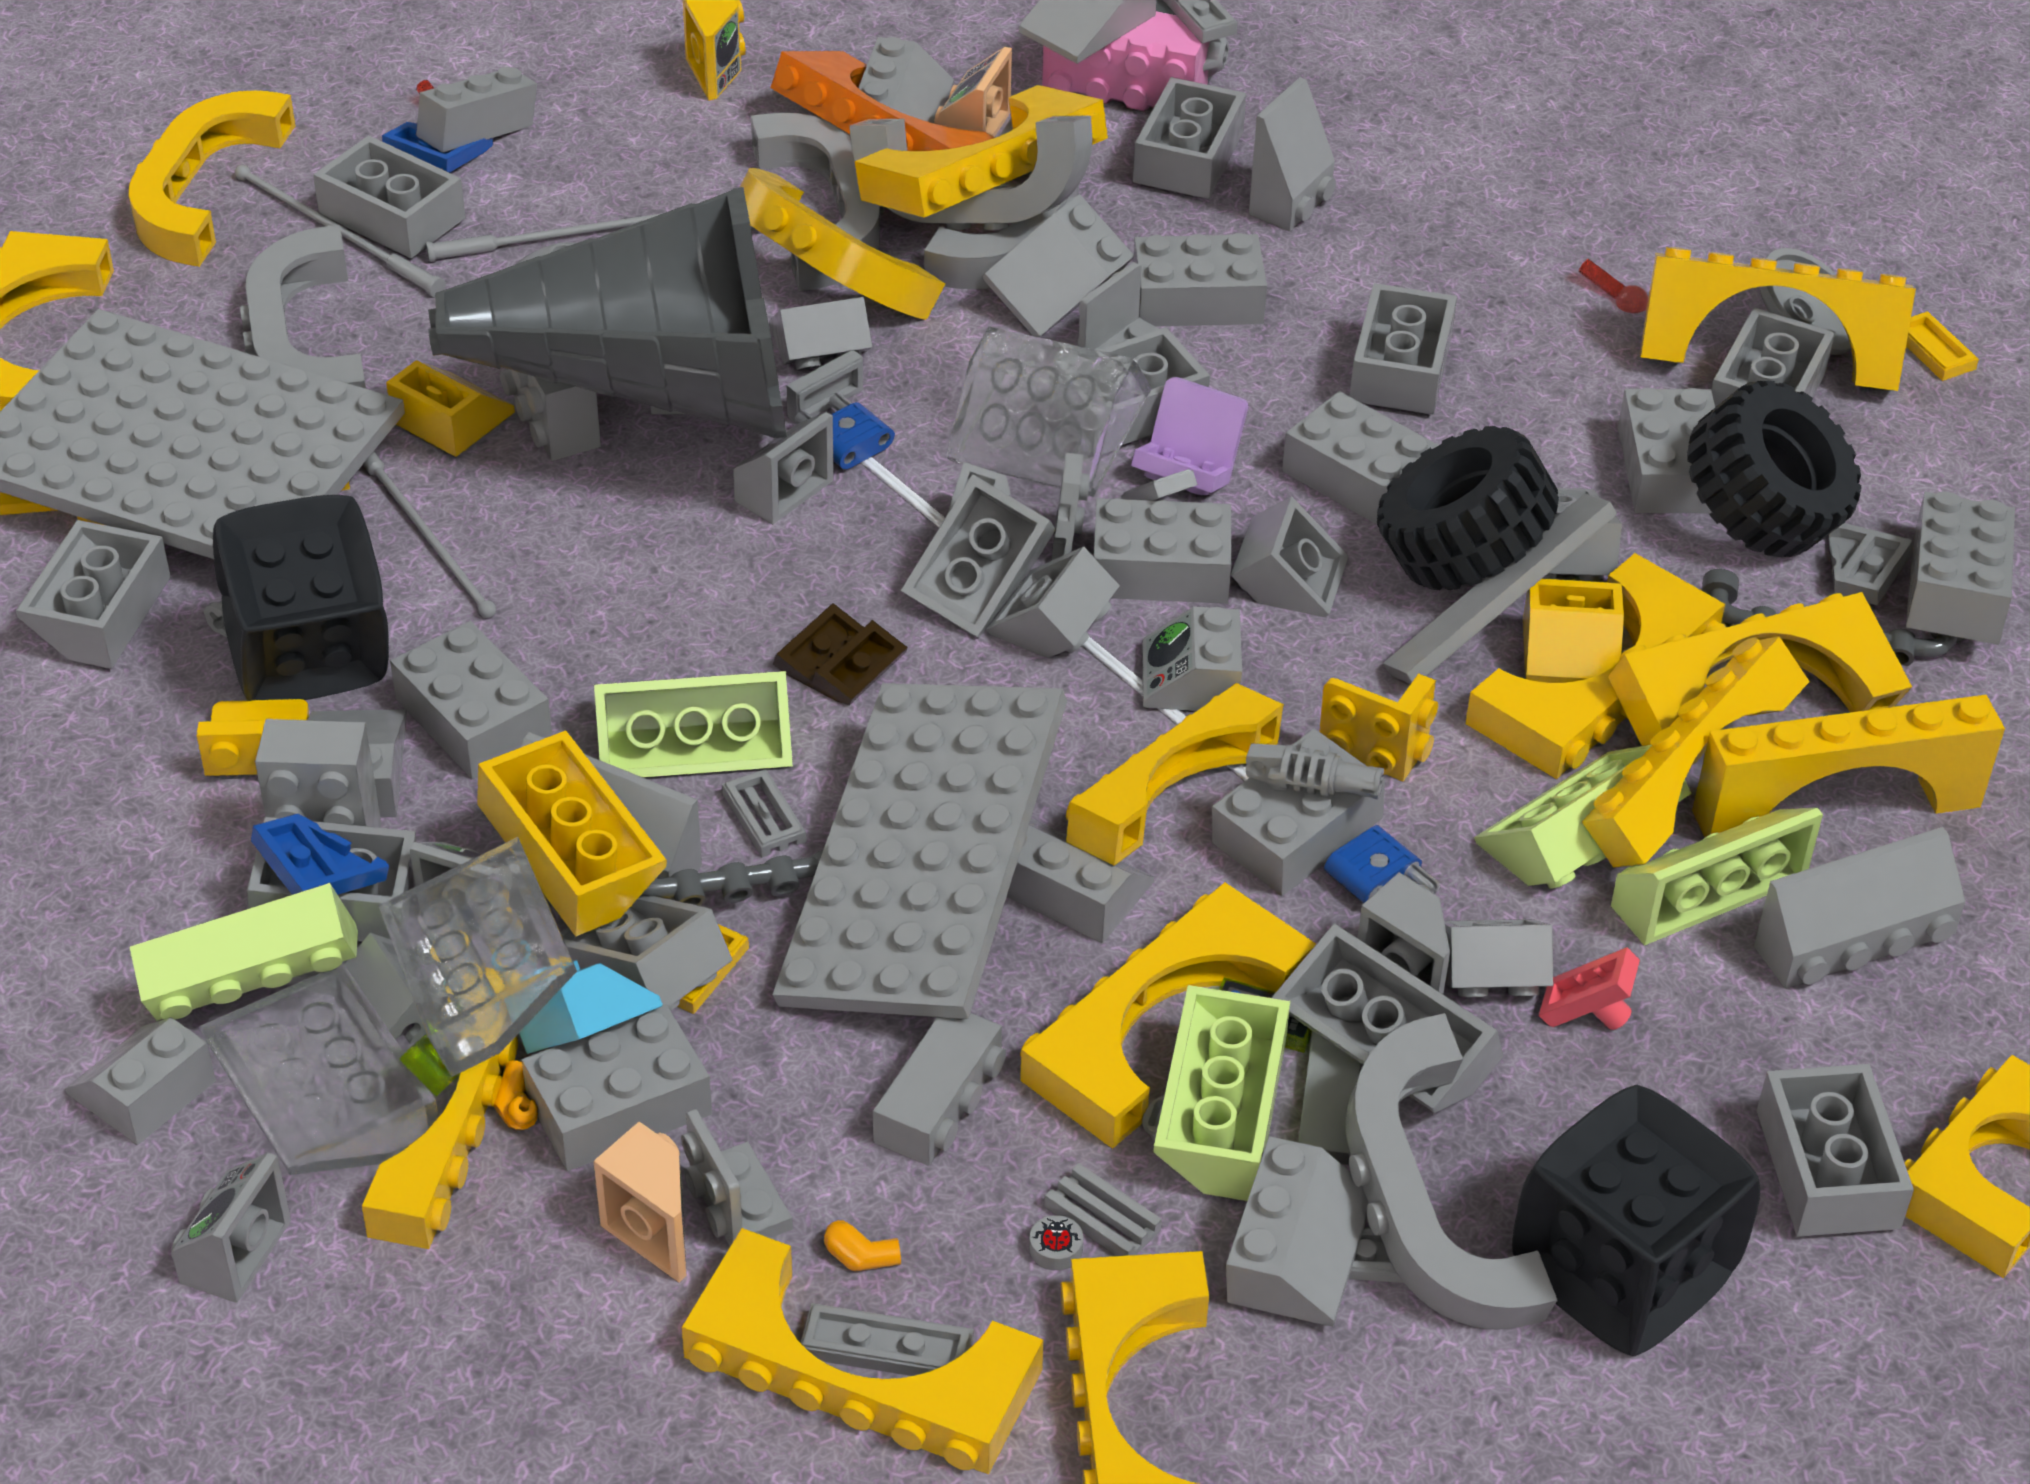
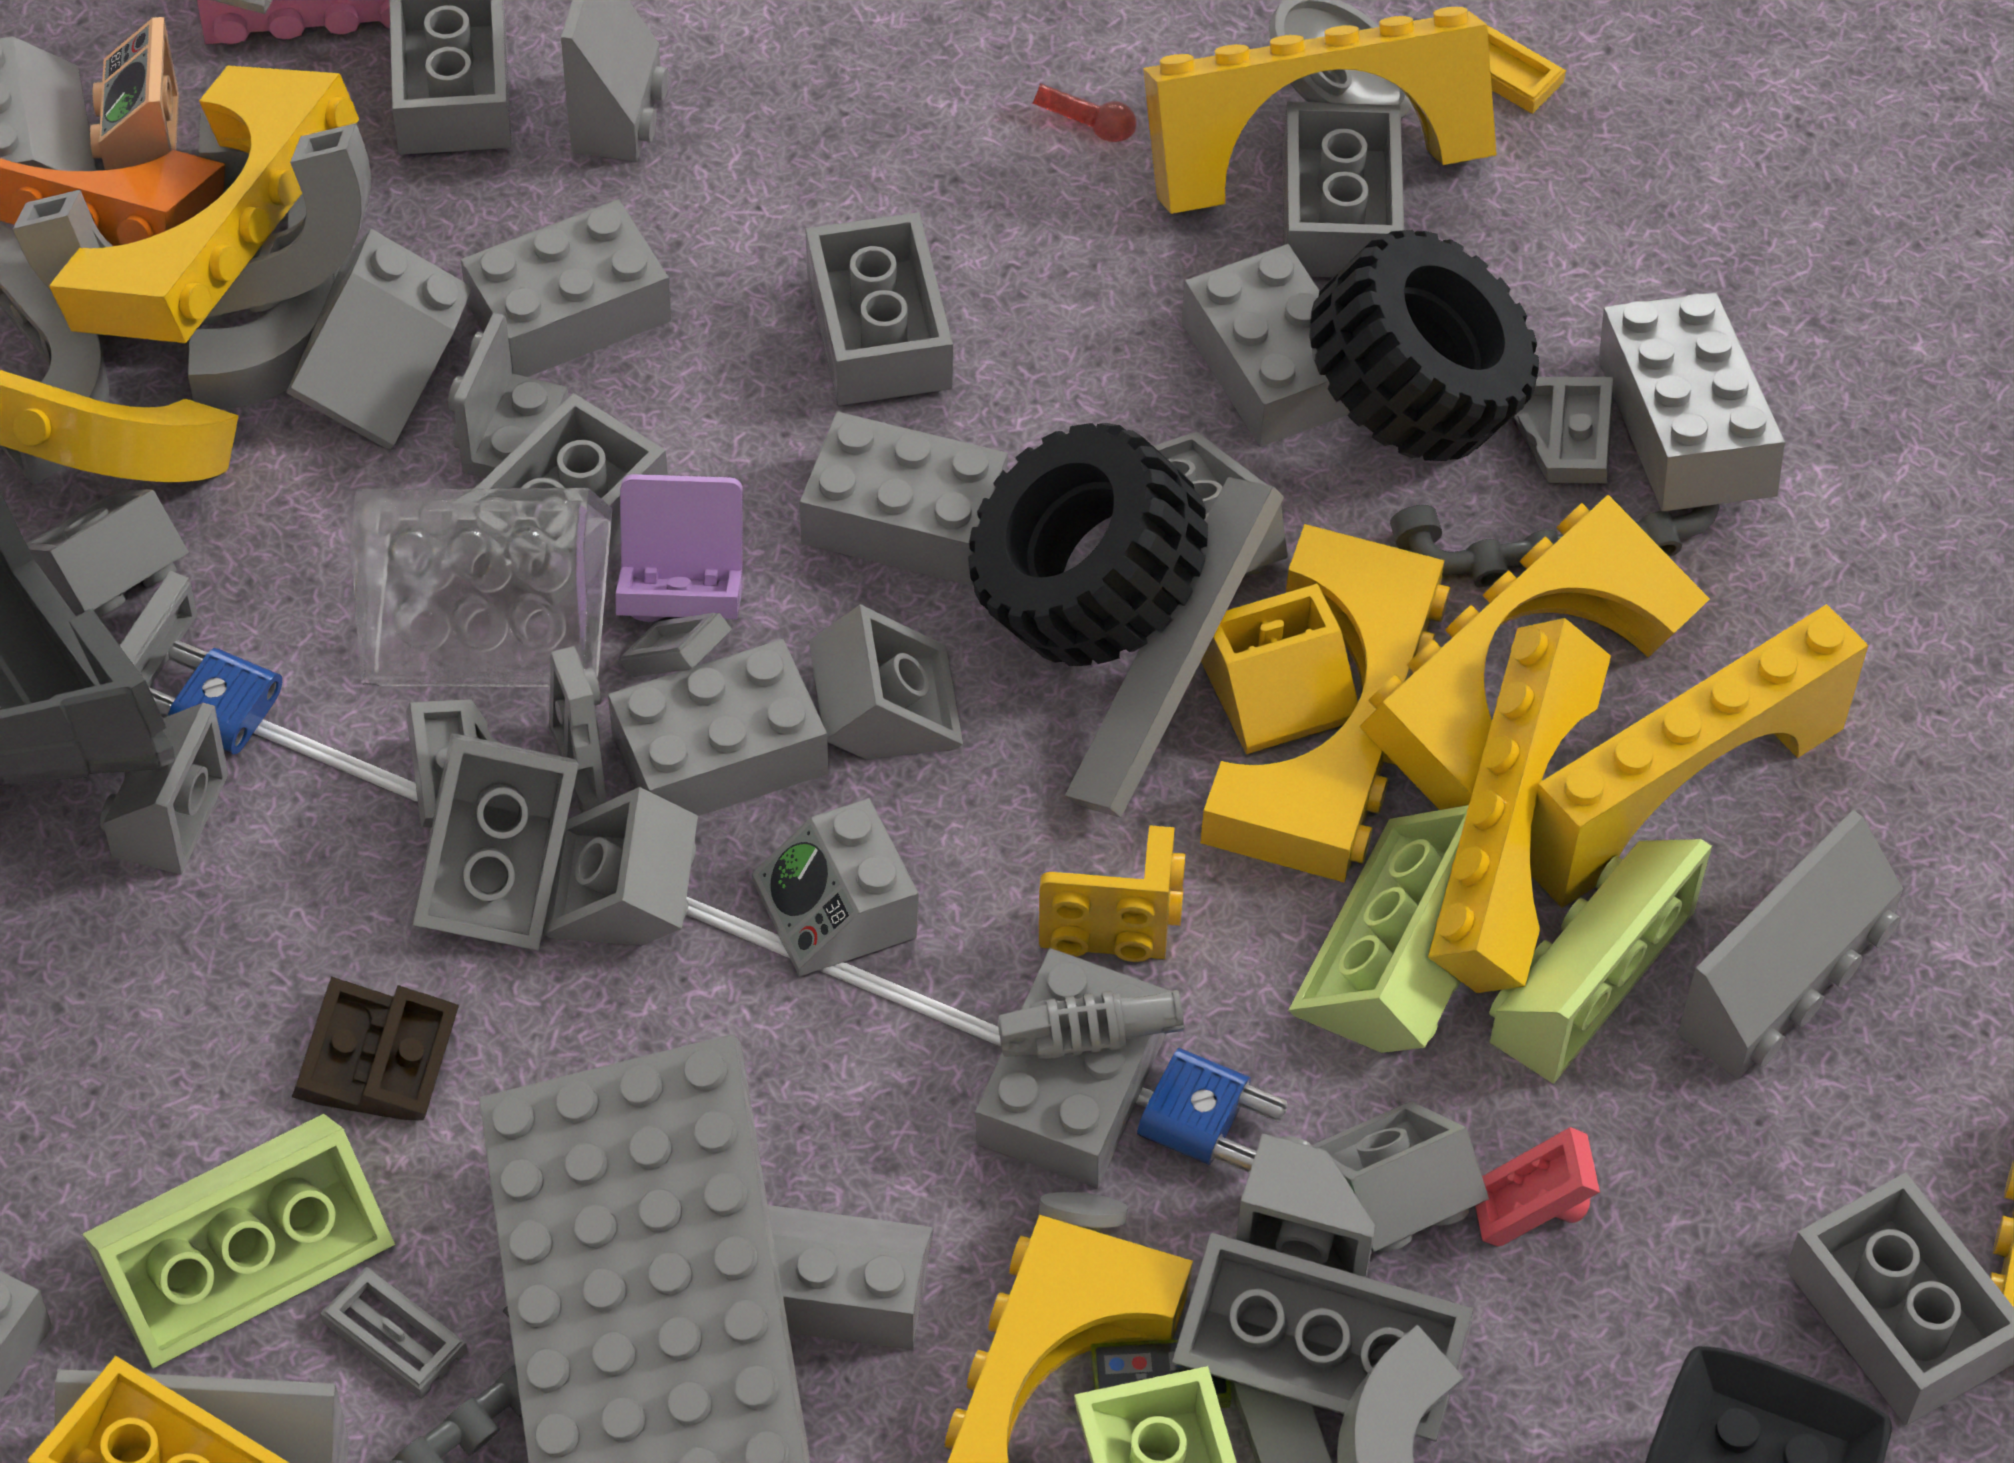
camera: 25 degrees left, 10 degrees up
(1112, 813) = (869, 1172): yellow arch -> none
(1262, 898) = (1084, 1209): none -> light grey piece

